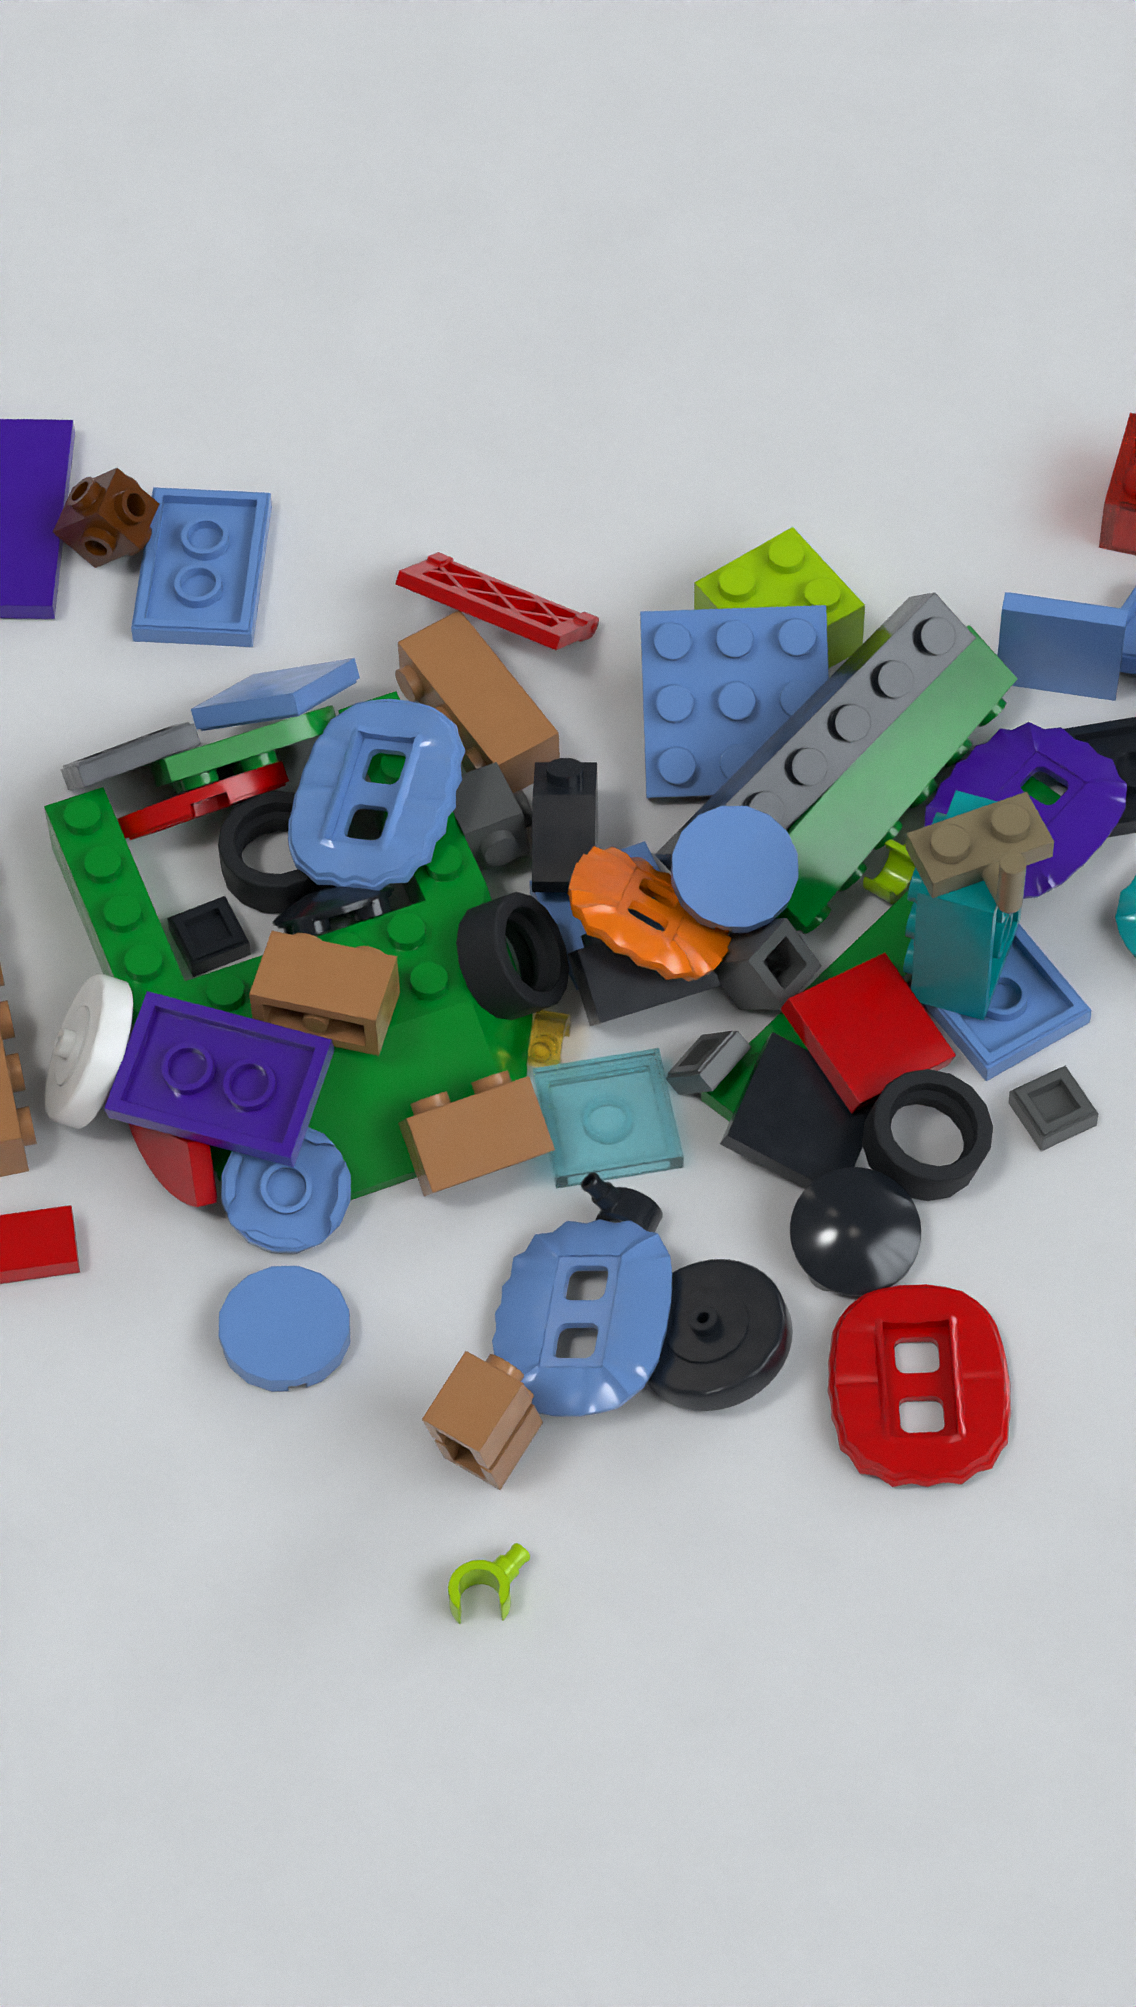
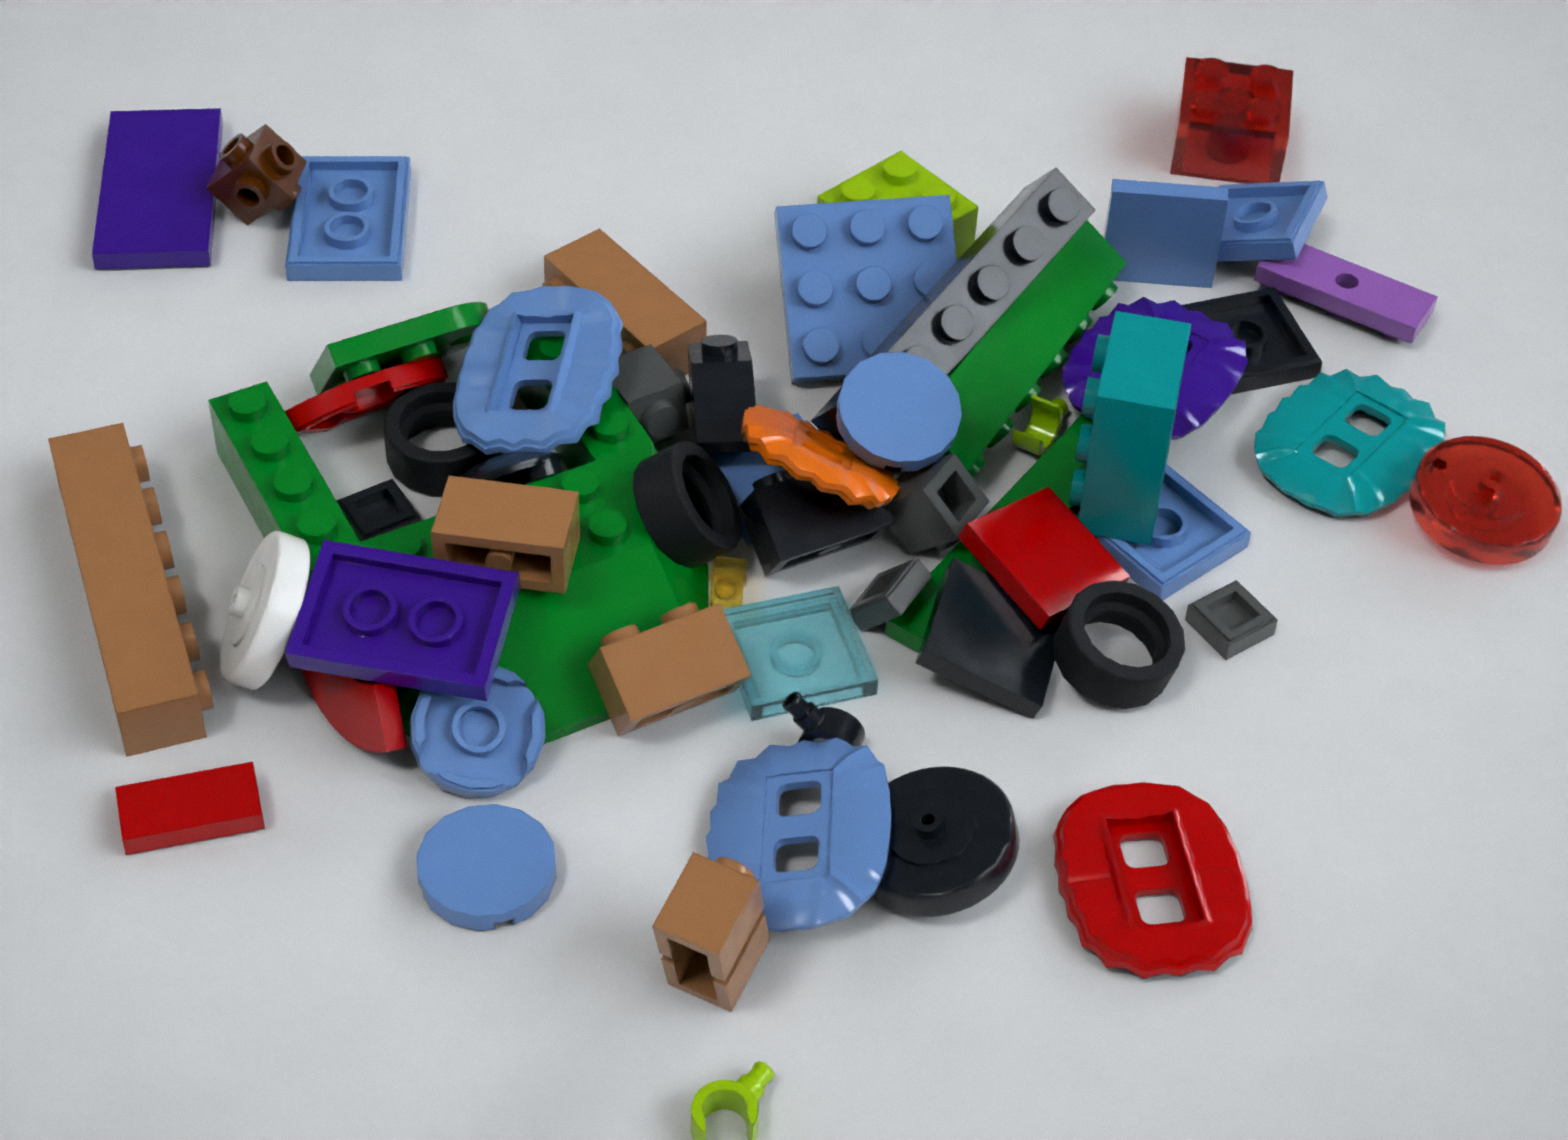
camera: 10 degrees left, 10 degrees down
(130, 755) = (287, 357): tile -> none
(275, 695) = (430, 300): medium blue tile -> none
(497, 602) = (577, 210): red window -> none
(855, 1231) = (1062, 737): black dish -> none
(984, 846) = (1159, 348): dark tan plate -> none

